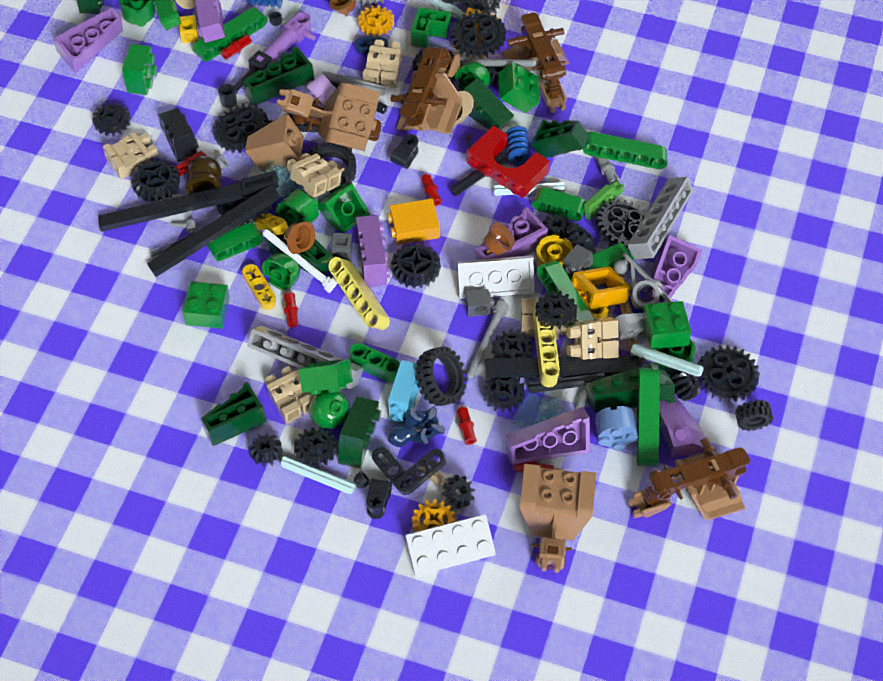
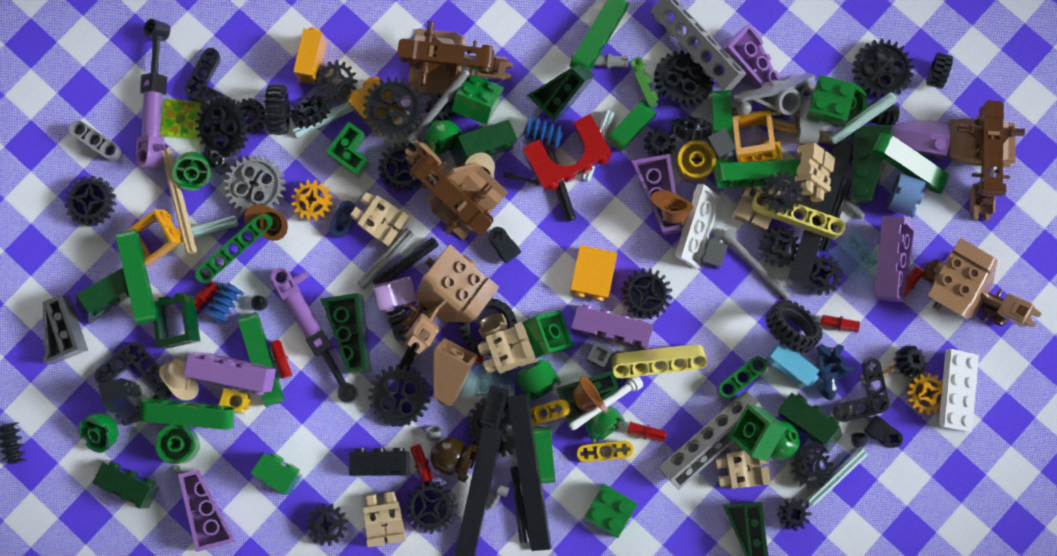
camera: 65 degrees left, 25 degrees up
(431, 189) = (558, 239): red axle -> none

